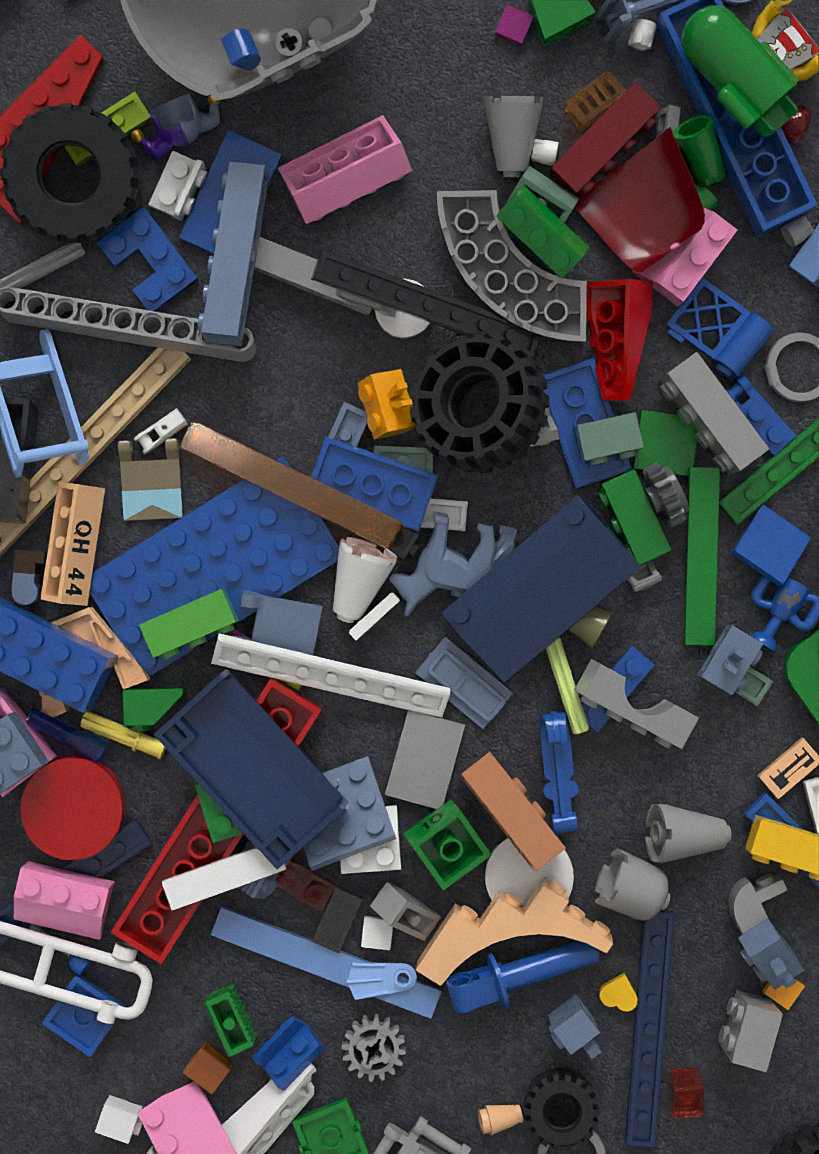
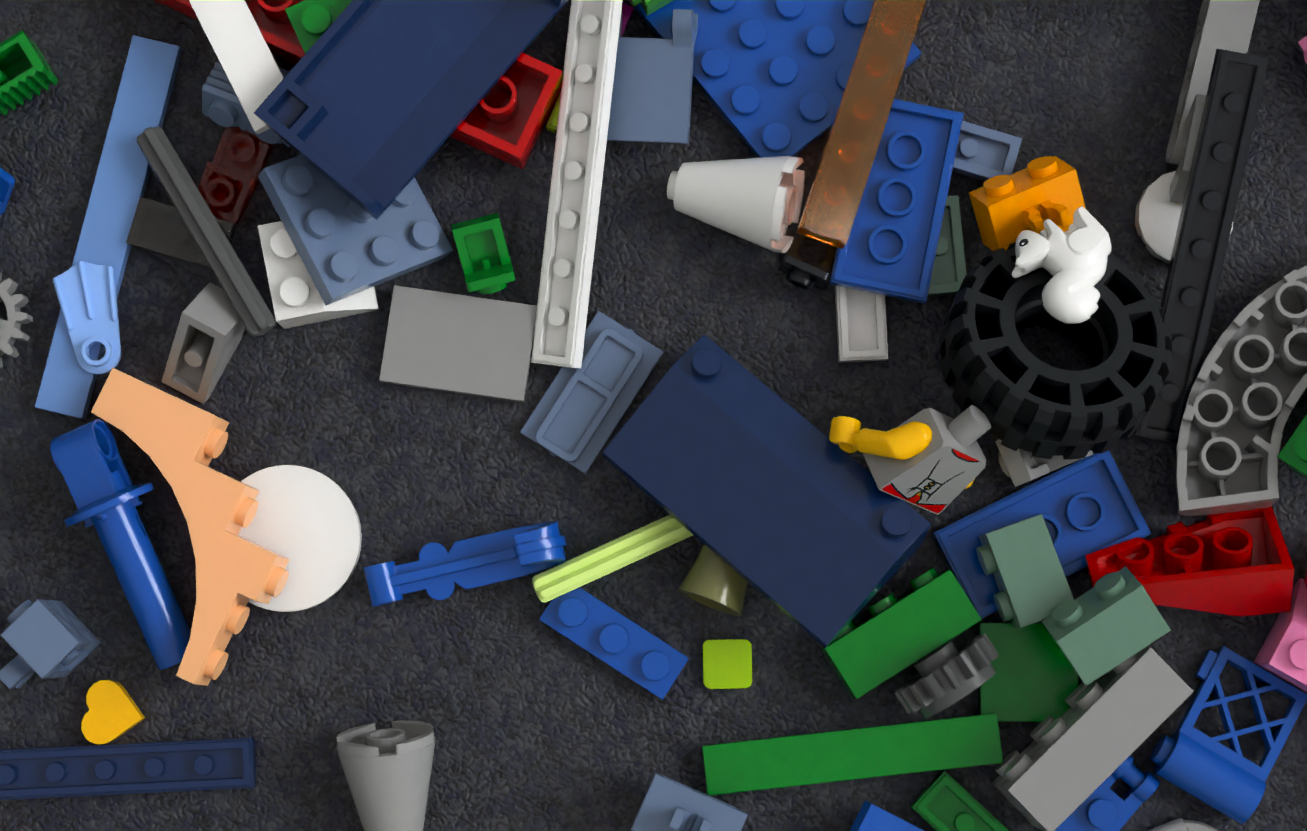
camera: 75 degrees right, 5 degrees down
(339, 904) = (206, 231): none -> dark grey axle
(373, 738) = (483, 254): none -> green bracket
(374, 615) = (682, 230): white tile -> none
(376, 933) = (163, 301): white tile -> none
(431, 385) = (1074, 260): none -> white animal
(447, 844) = (324, 393): green brick -> none
(448, 569) = (776, 335): sand blue animal -> none
(512, 811) = (393, 488): nougat brick -> none
(537, 493) = (923, 458): none -> light grey torso
(607, 688) = (614, 619): light grey arch -> none
(632, 887) = (290, 709): light grey cylinder -> none
(637, 622) = (727, 664): none -> lime piece
(645, 577) = (805, 661): light grey slope -> none
(650, 397) = (1106, 625): none -> sand green brick

